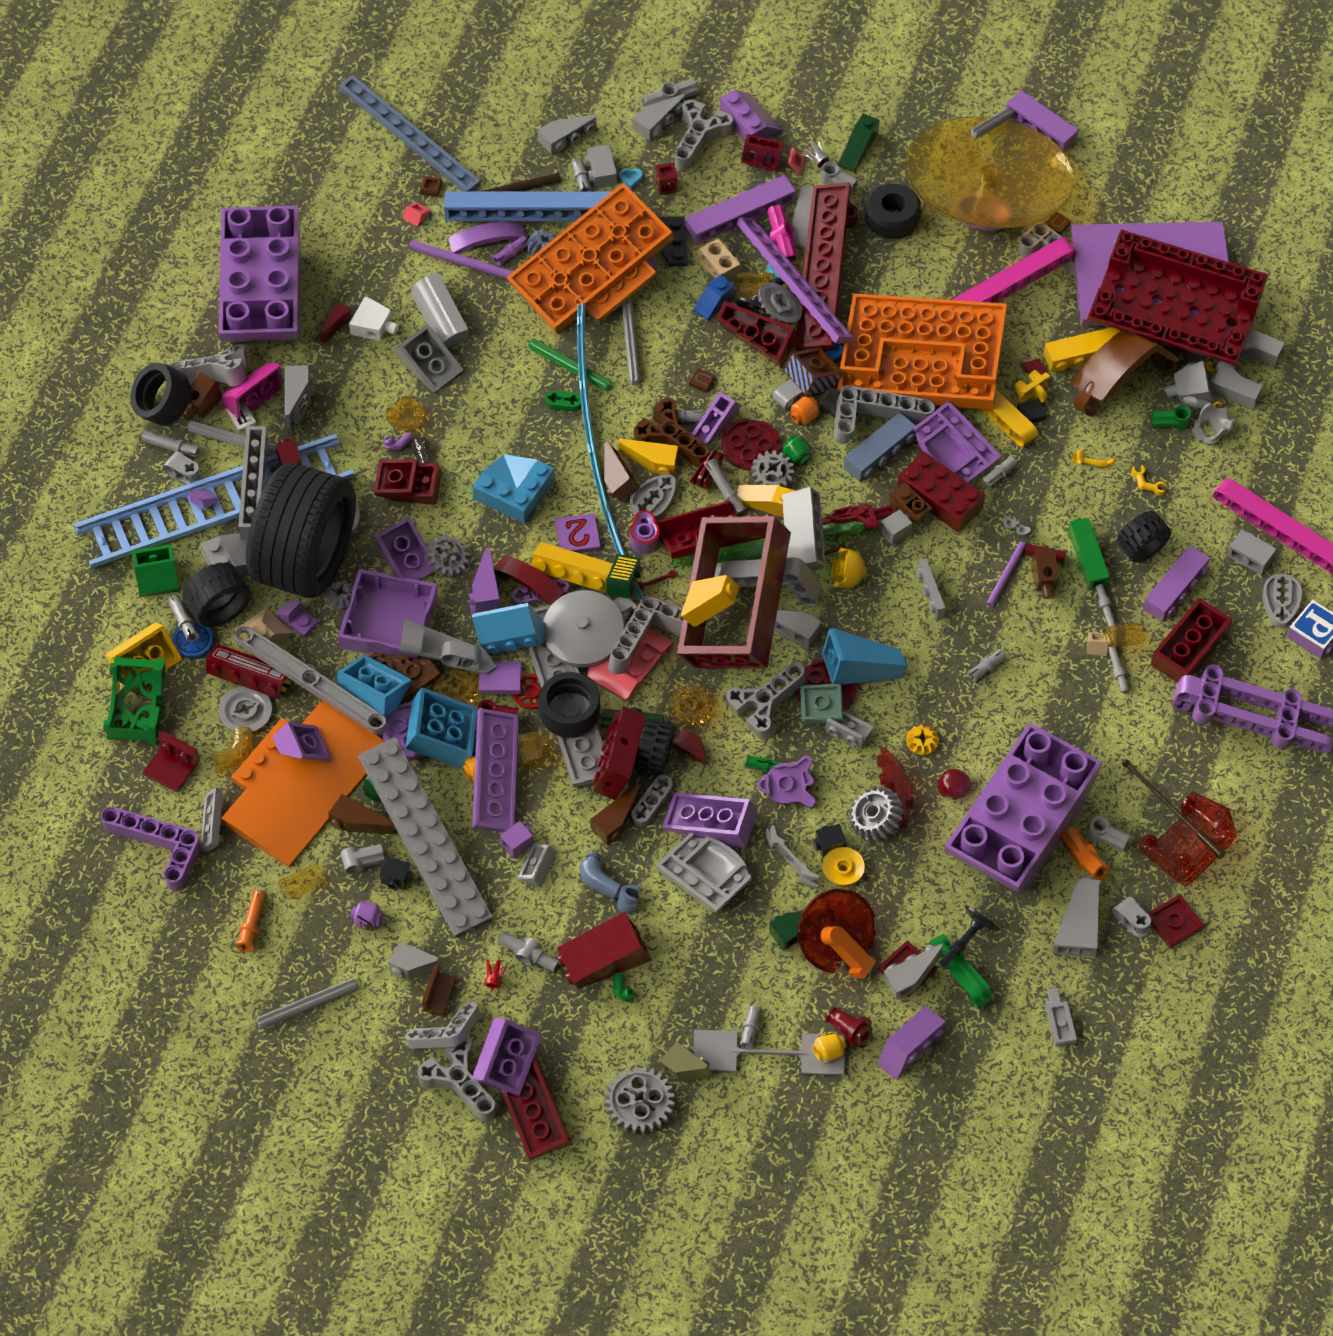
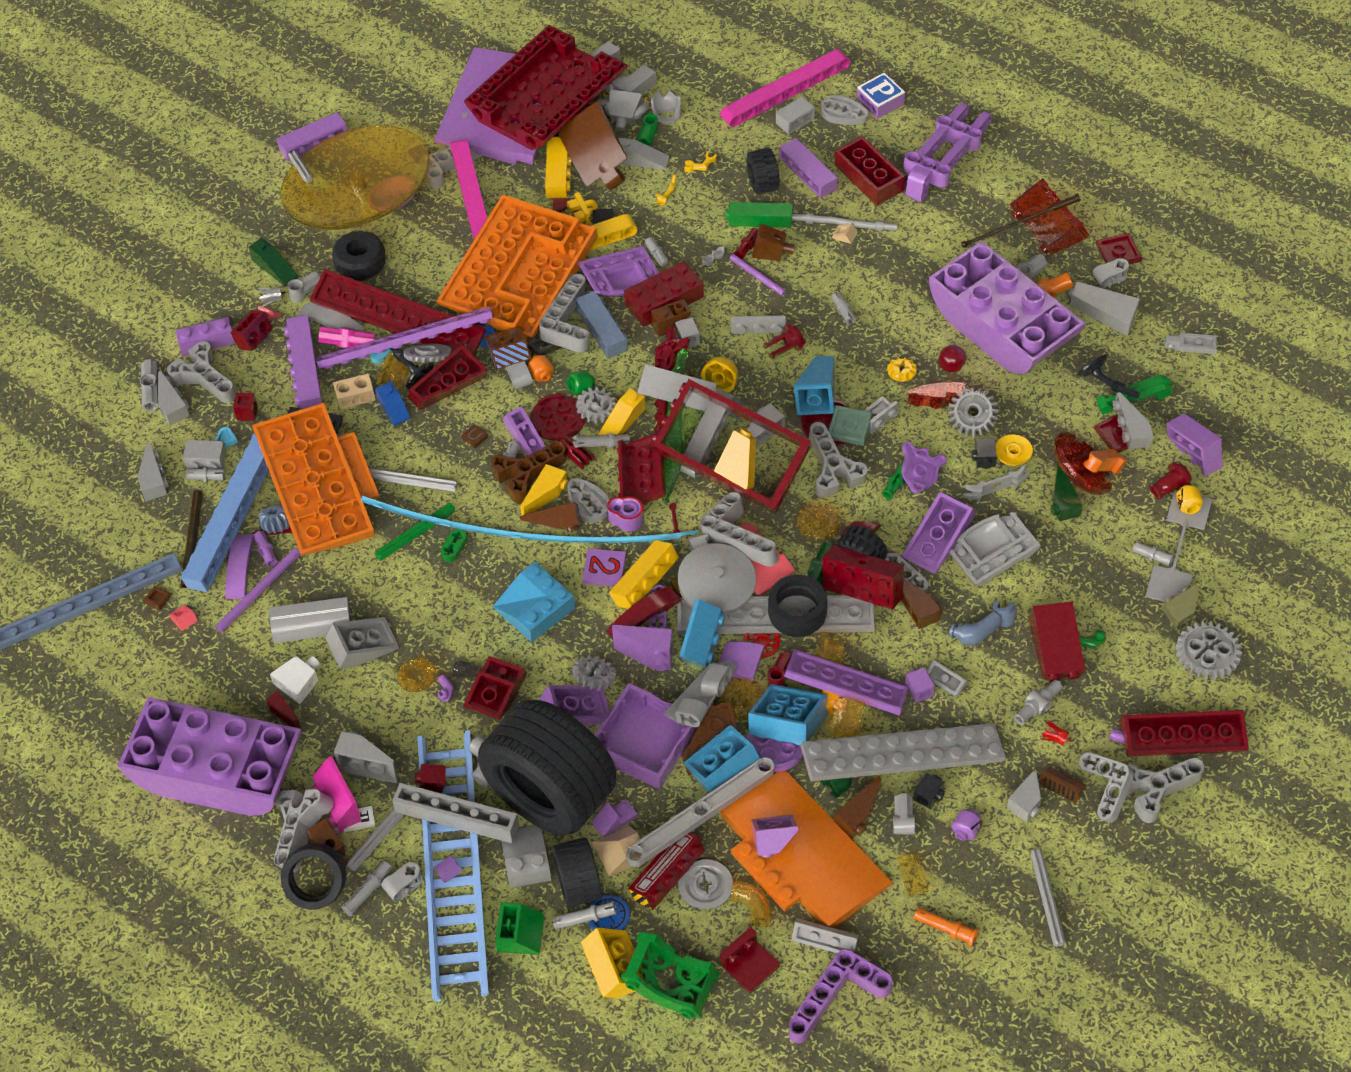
camera: 70 degrees left, 5 degrees down
(453, 779) = (846, 717): none -> clear yellow bracket
(506, 1056) = (1154, 734): medium lavender slope -> none
(624, 576) = (678, 533): dark green brick -> none
(920, 623) = (792, 338): none -> dark red piece
(1124, 635) = (846, 212): clear yellow tile -> none
(1132, 420) = (643, 155): none -> light grey slope

